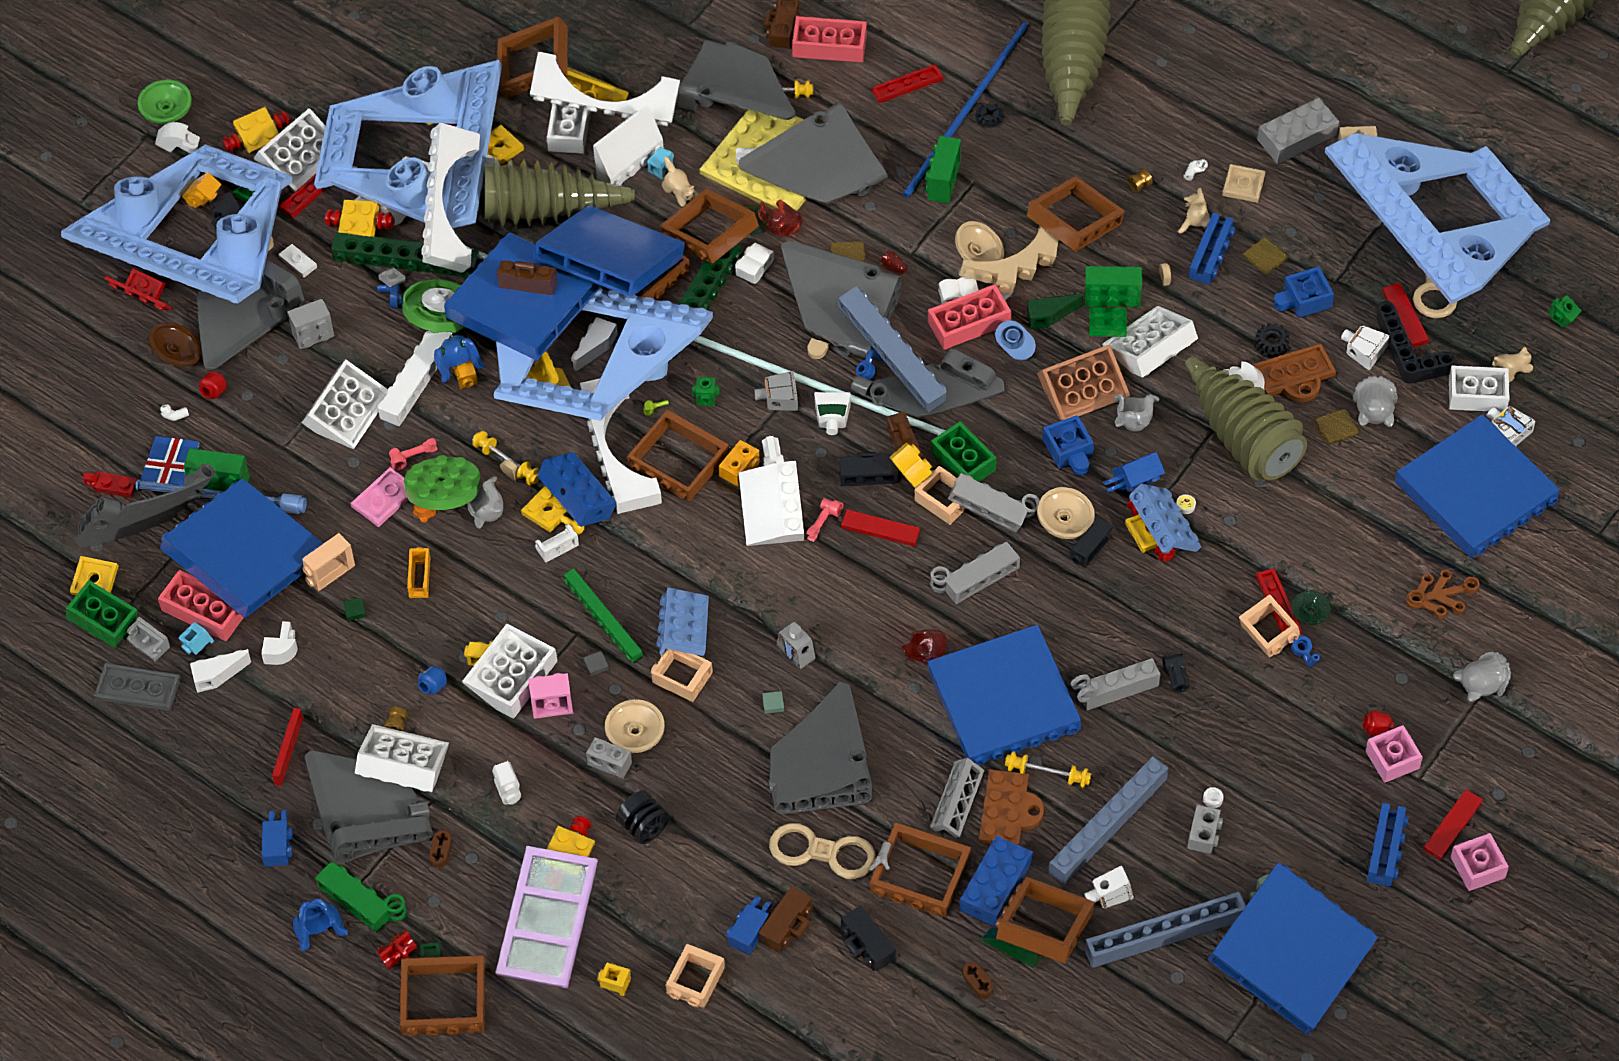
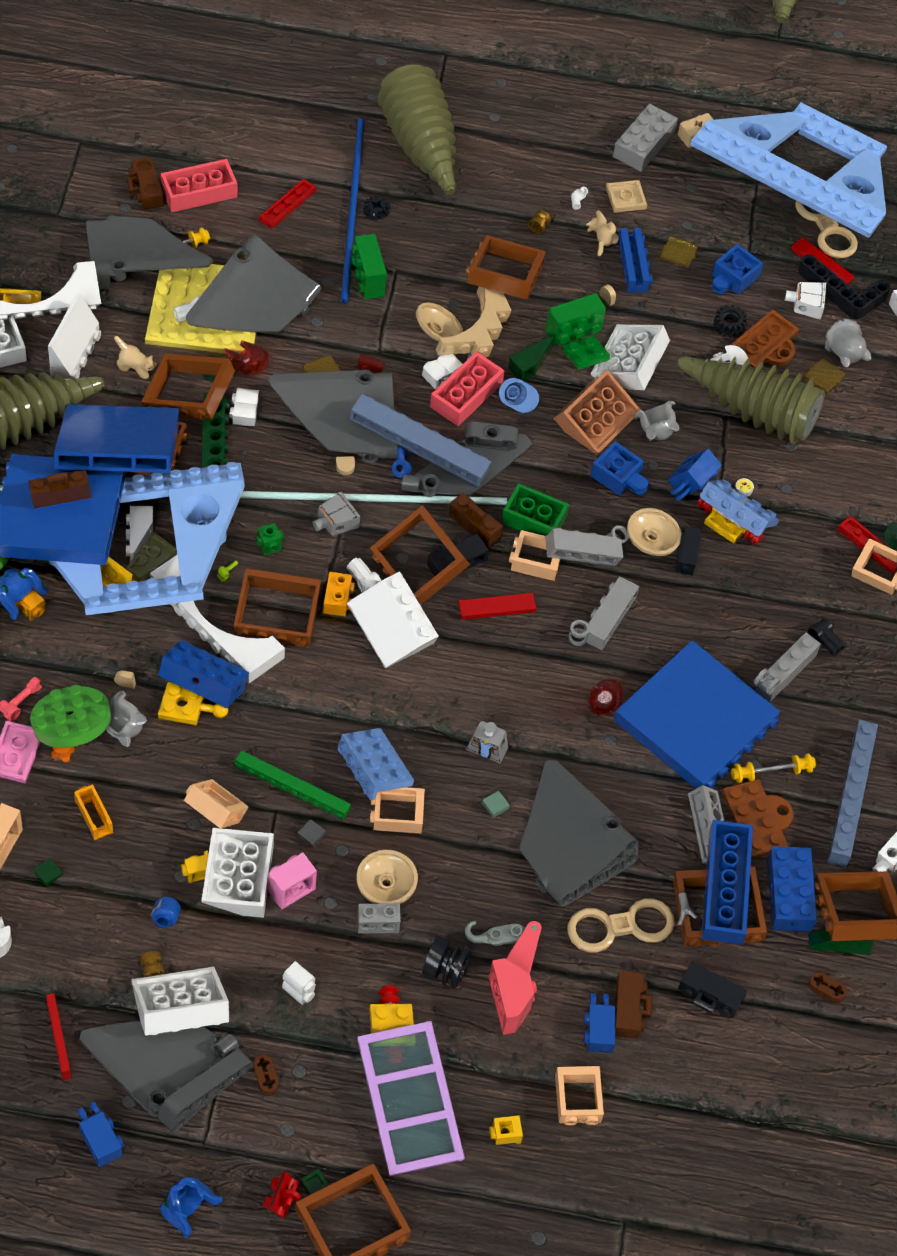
camera: 35 degrees left, 0 degrees up
(357, 898) = (213, 1159): green hinge -> none
(488, 444) = (82, 661): yellow axle -> none
(535, 614) = (215, 803): none -> light nougat window
(558, 544) = (210, 732): white hinge -> none
(586, 371) = (153, 555): none -> olive wing
(656, 162) = (106, 345): medium azure brick -> none
(692, 853) = (511, 977): none -> coral slope
(829, 507) = (442, 604): coral brick -> none
(832, 410) = (391, 512): white torso -> none
(840, 481) = (400, 530): none -> dark orange window
(911, 465) = (499, 538): yellow brick -> none
(930, 848) = (727, 882): none -> blue brick

